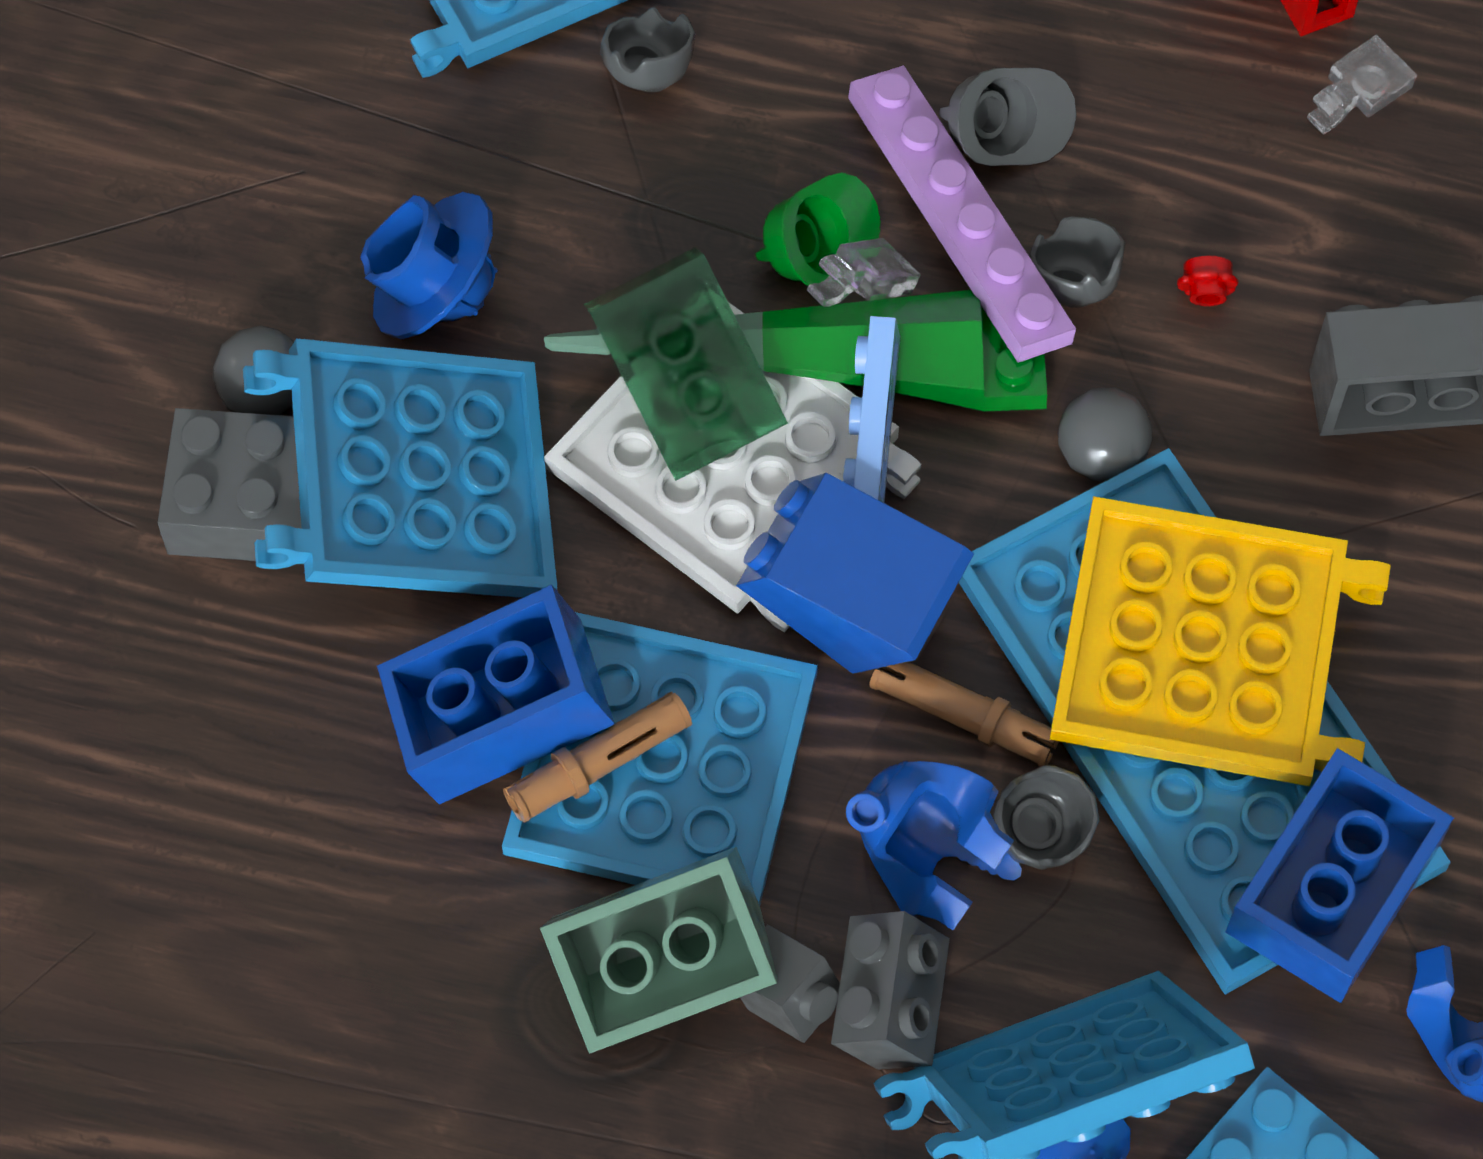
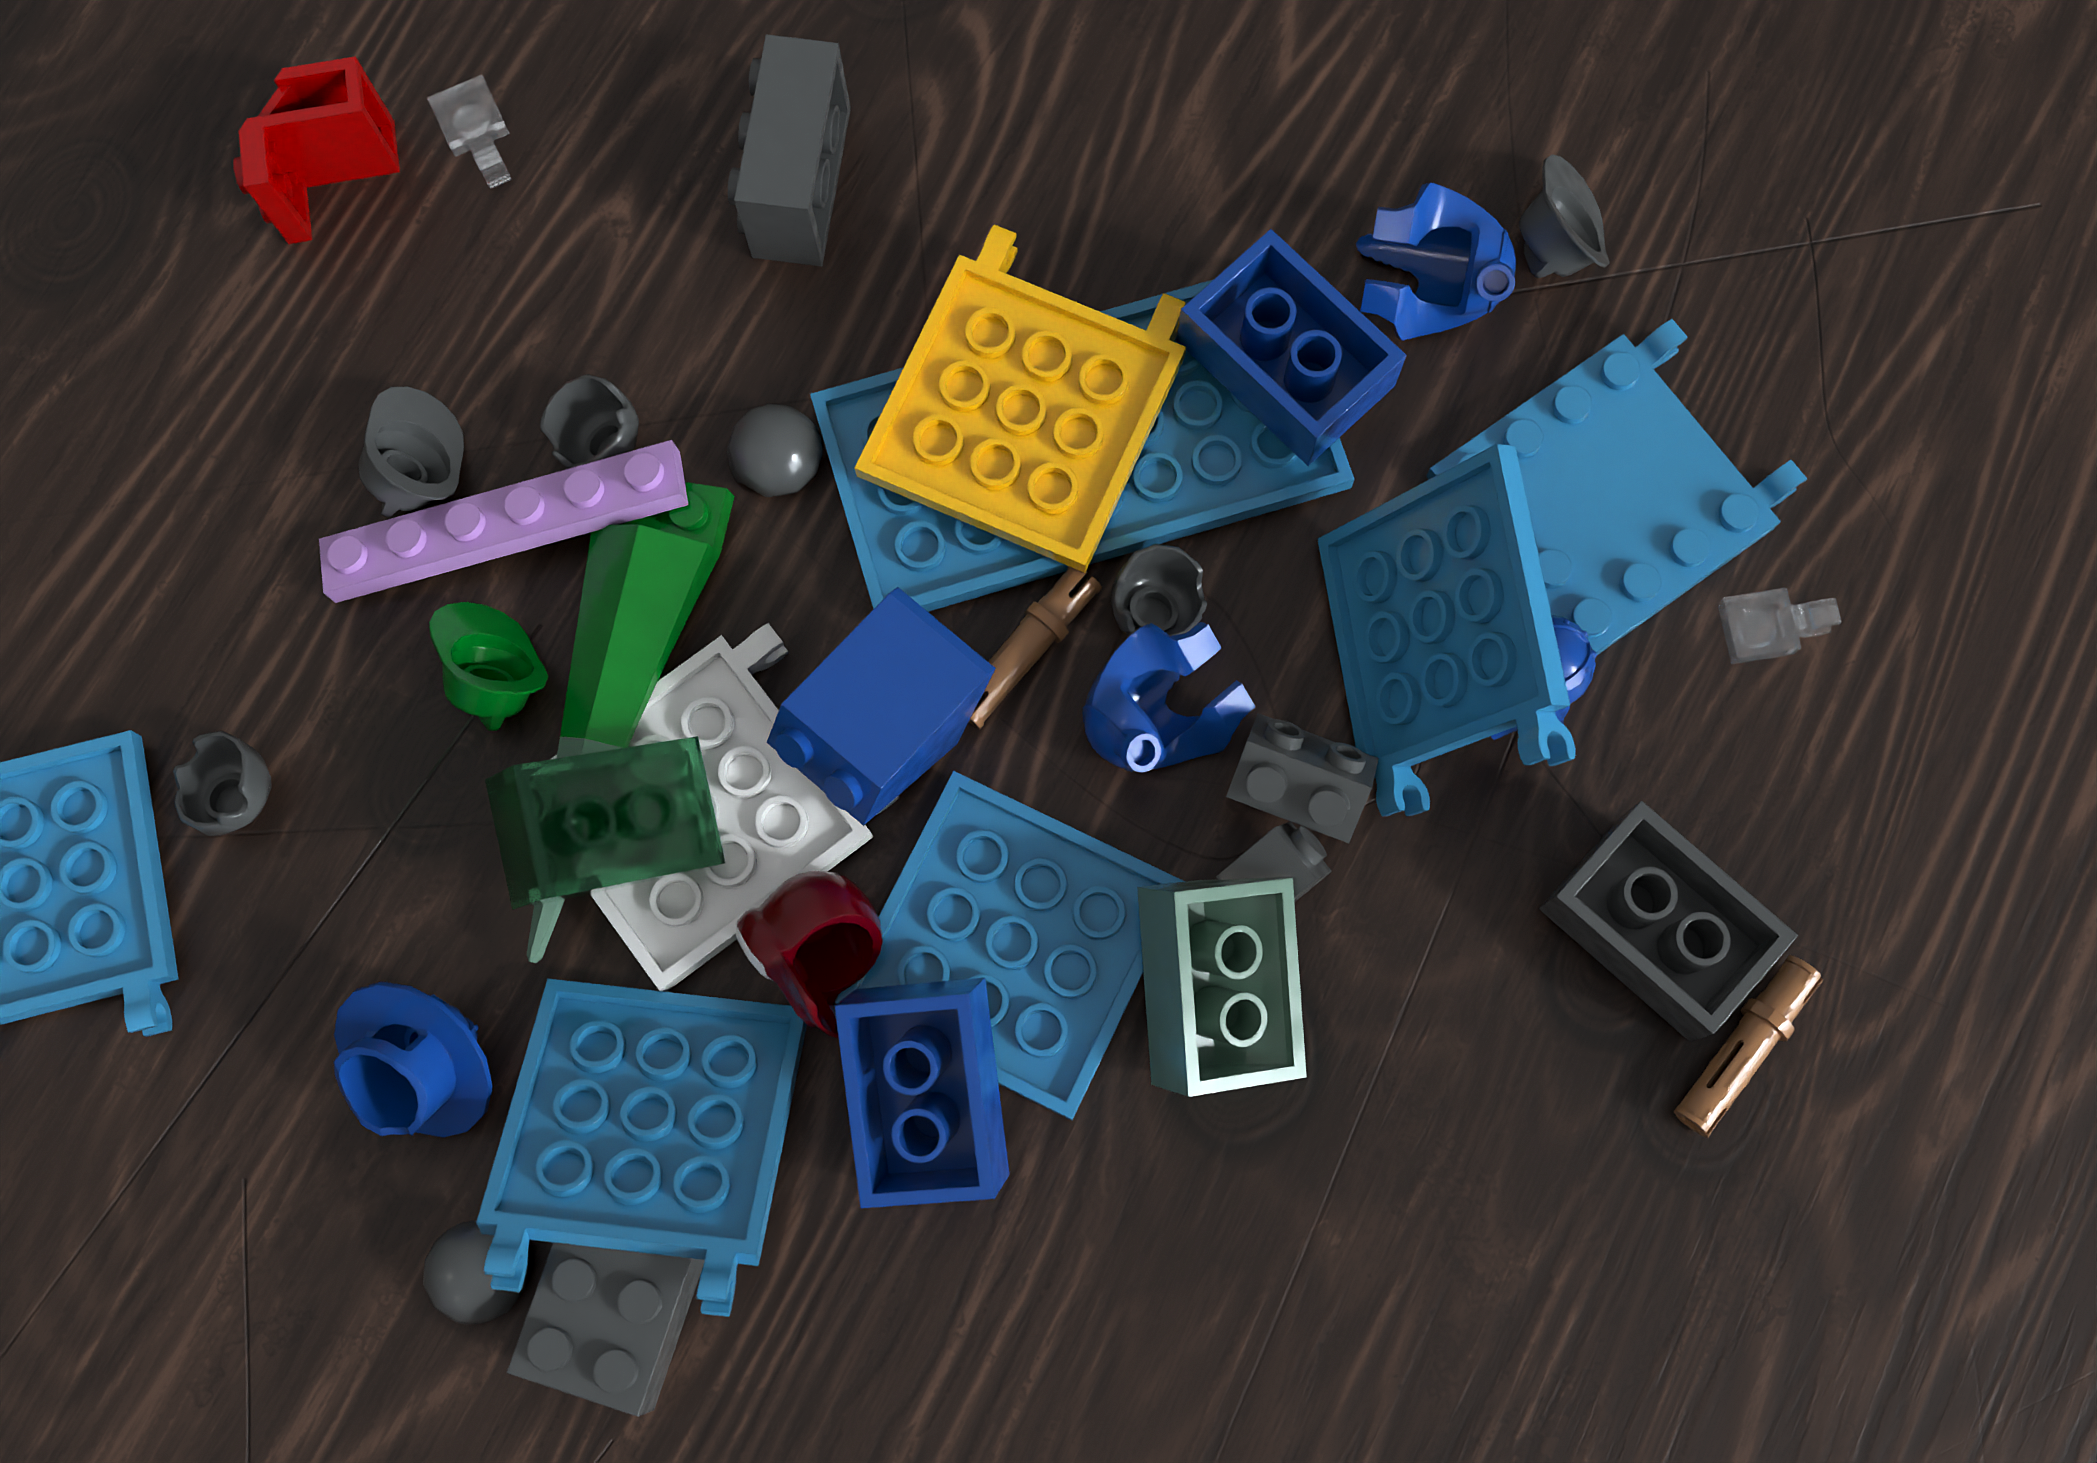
camera: 75 degrees left, 10 degrees up
(576, 769) = (1014, 1018): medium nougat pin -> none
(628, 576) = (813, 941): none -> dark red piece
(866, 267) = (540, 624): clear plate -> none
(873, 412) = (712, 649): light blue plate -> none
(1207, 280) = (640, 317): red plate -> none

